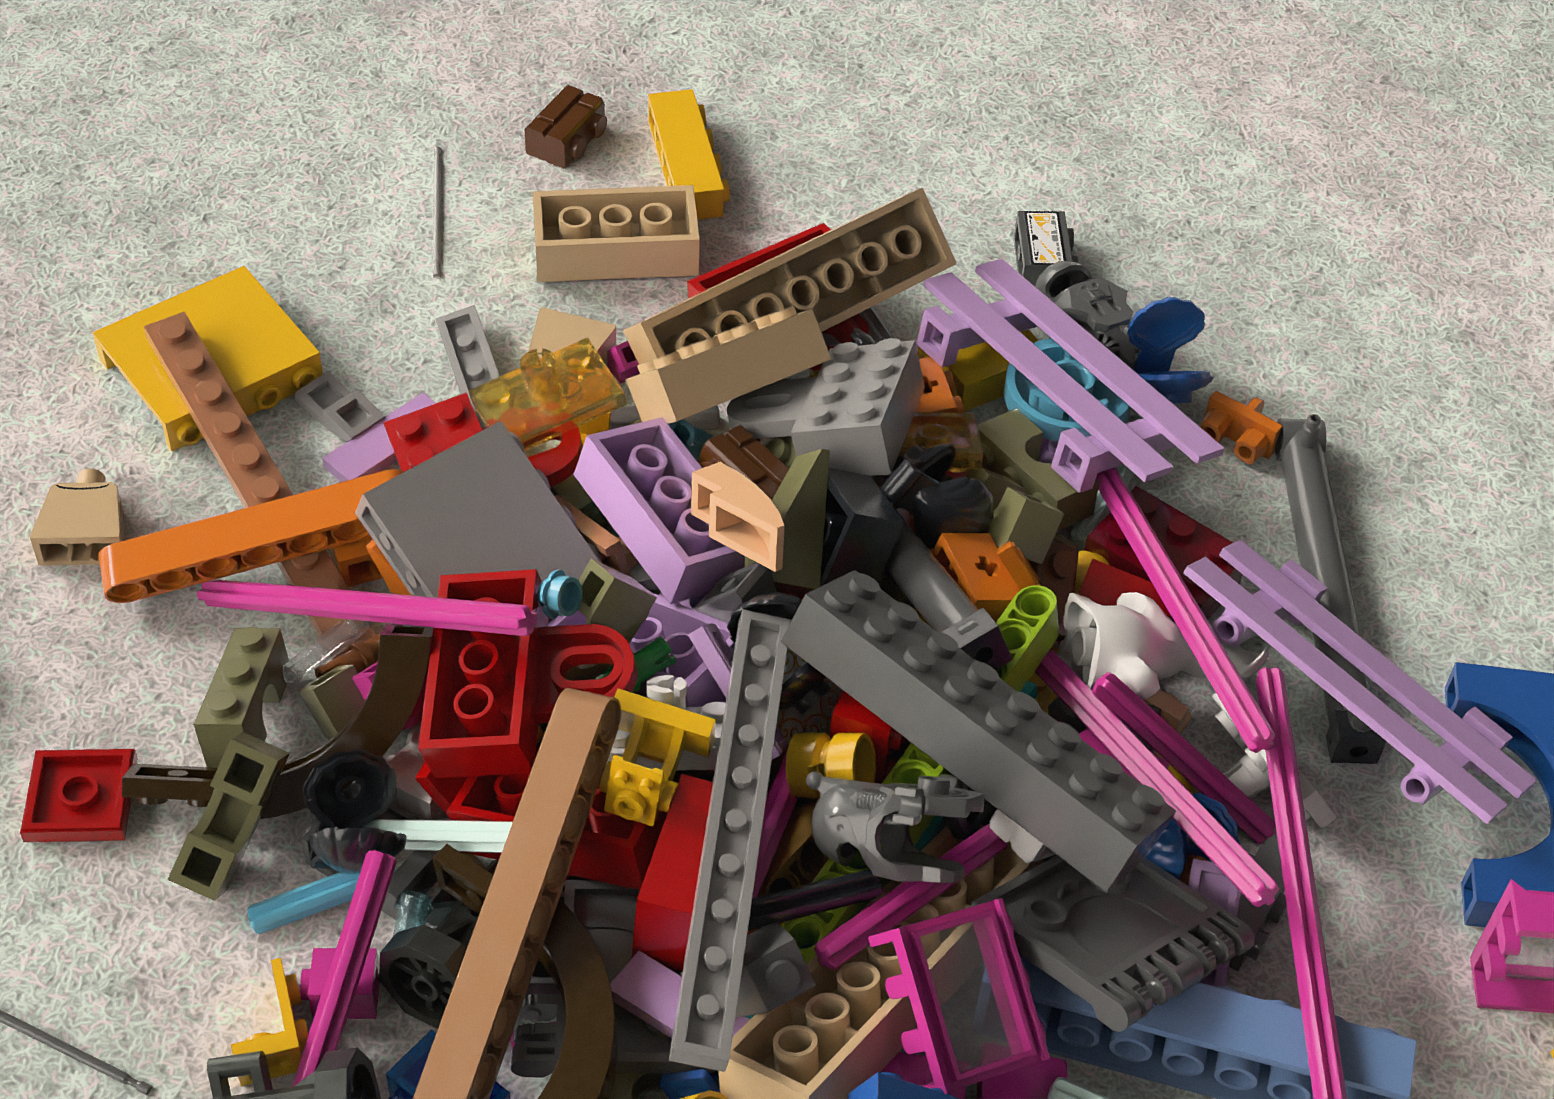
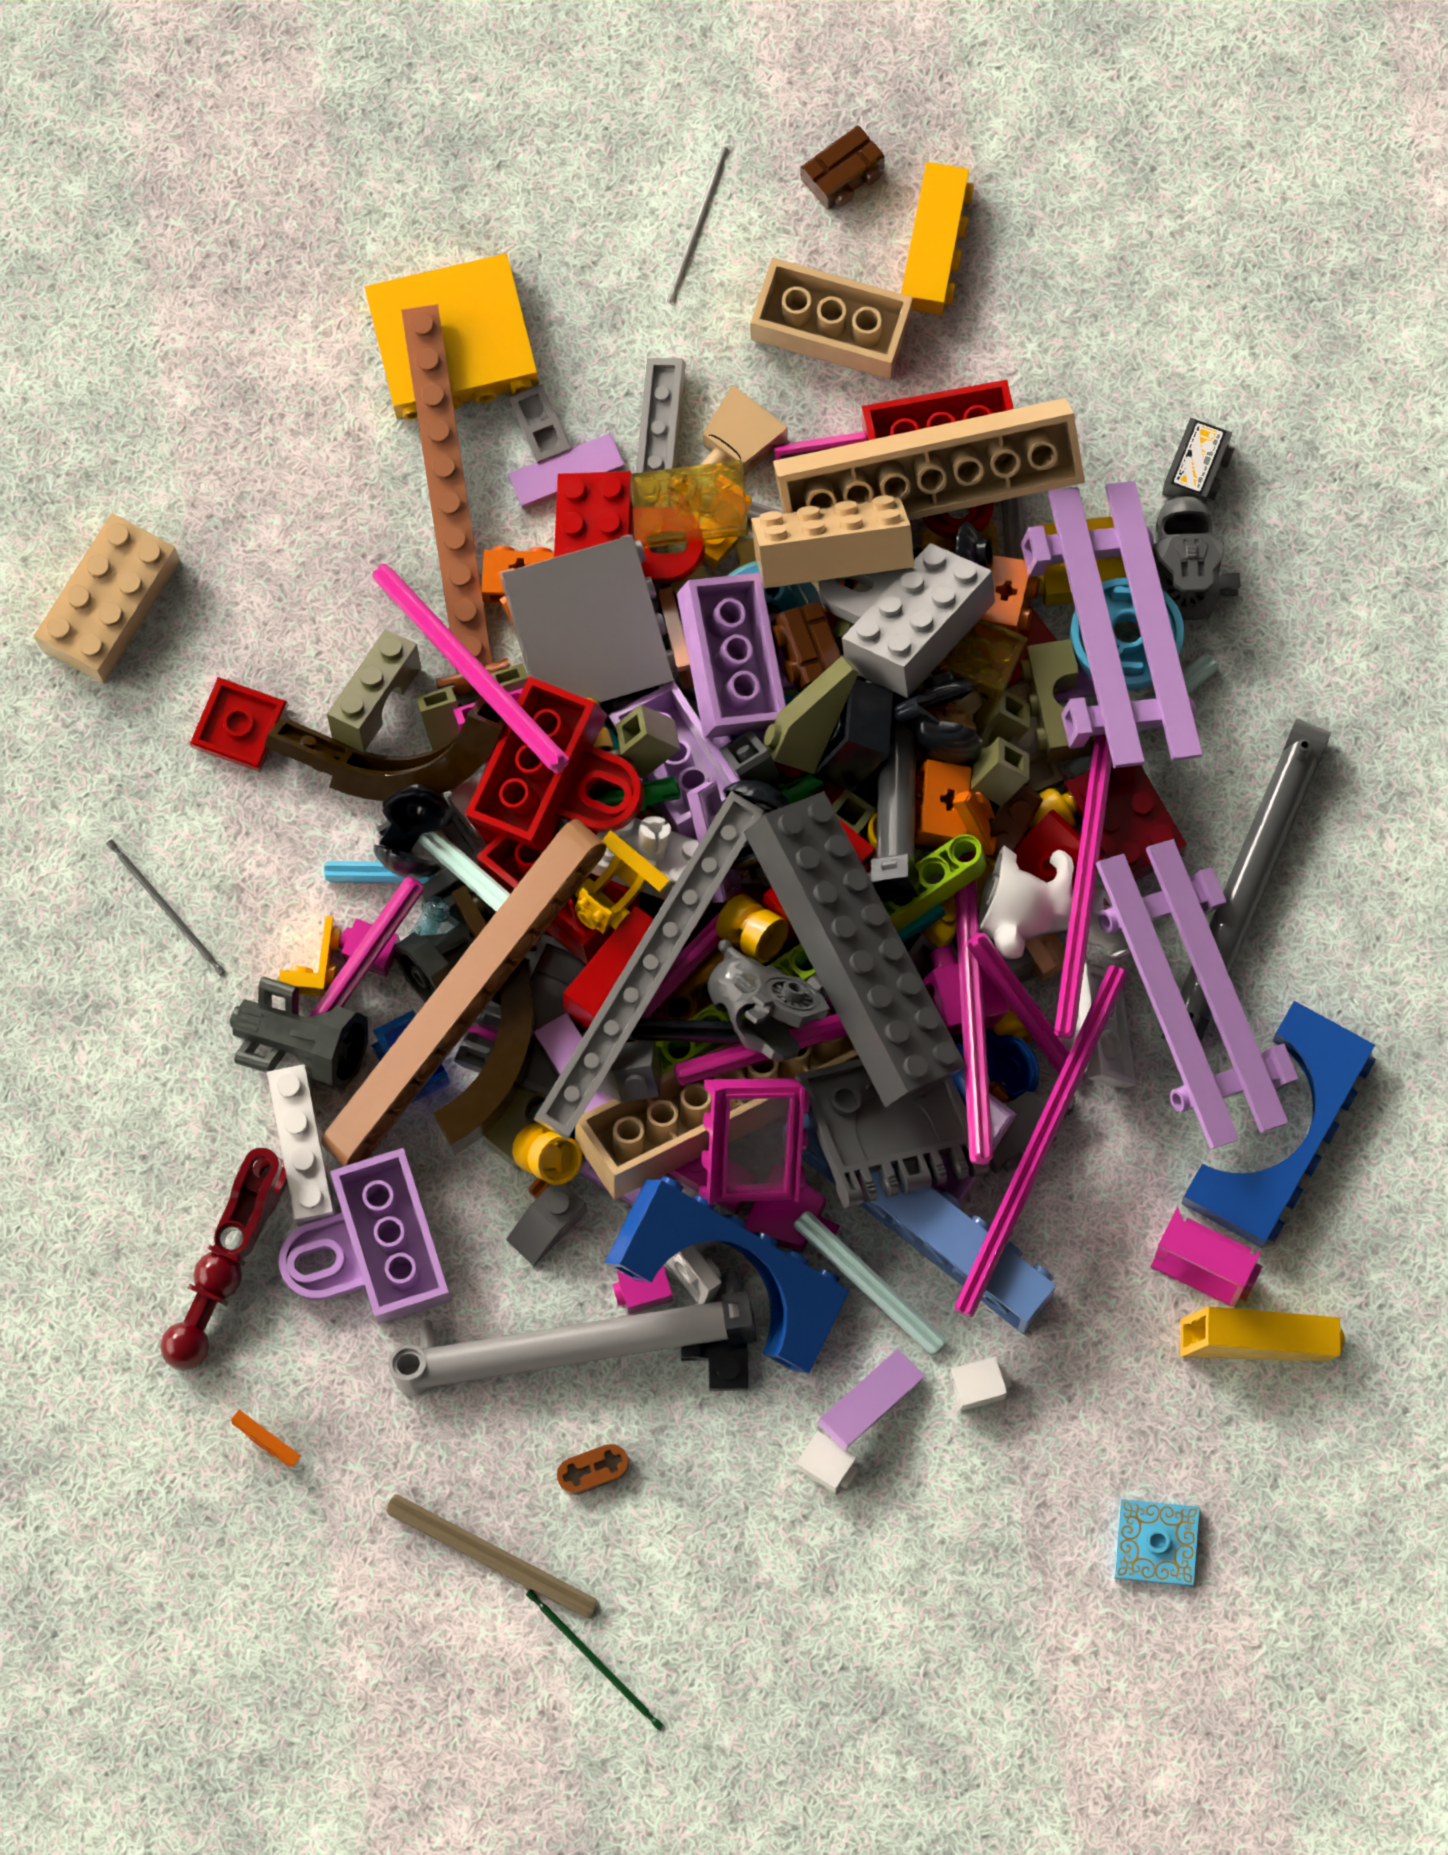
camera: 30 degrees right, 25 degrees up
(78, 521) = (306, 474): tan torso -> none
(235, 808) = (330, 797): olive arch -> none
(236, 541) = (418, 550): orange beam -> none
(324, 649) = (439, 670): clear tile -> none
(559, 595) = (607, 726): medium azure plate -> none
(738, 514) = (765, 701): light nougat slope -> none
(1158, 333) = (1223, 646): blue animal -> none
(1242, 423) = (1255, 698): orange hips -> none

